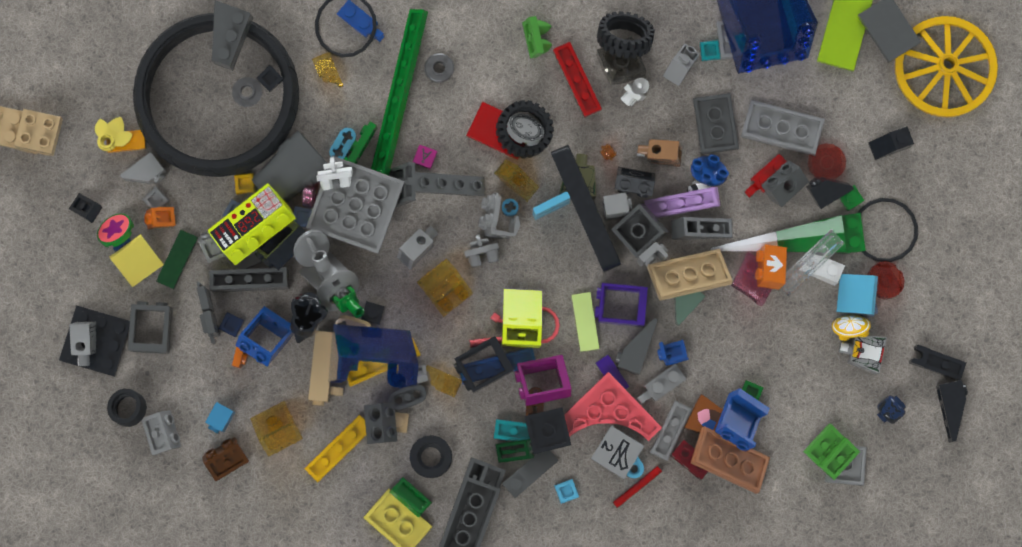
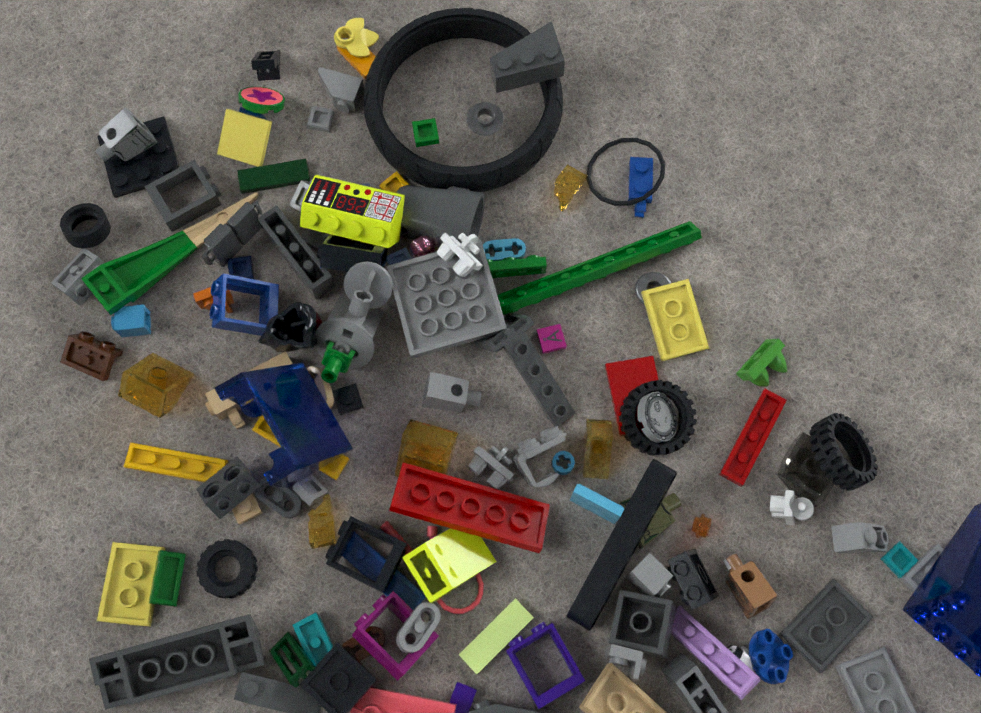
camera: 55 degrees right, 10 degrees down
(160, 217) = (304, 132): orange bracket -> none
(188, 394) = (135, 273): none -> green plate
(231, 138) = (425, 132): none -> green plate
(270, 78) = (514, 128): black plate -> none
(469, 70) = (675, 320): none -> light yellow tile
(499, 283) = (470, 507): none -> red plate
(550, 363) = (418, 628): none -> light grey plate

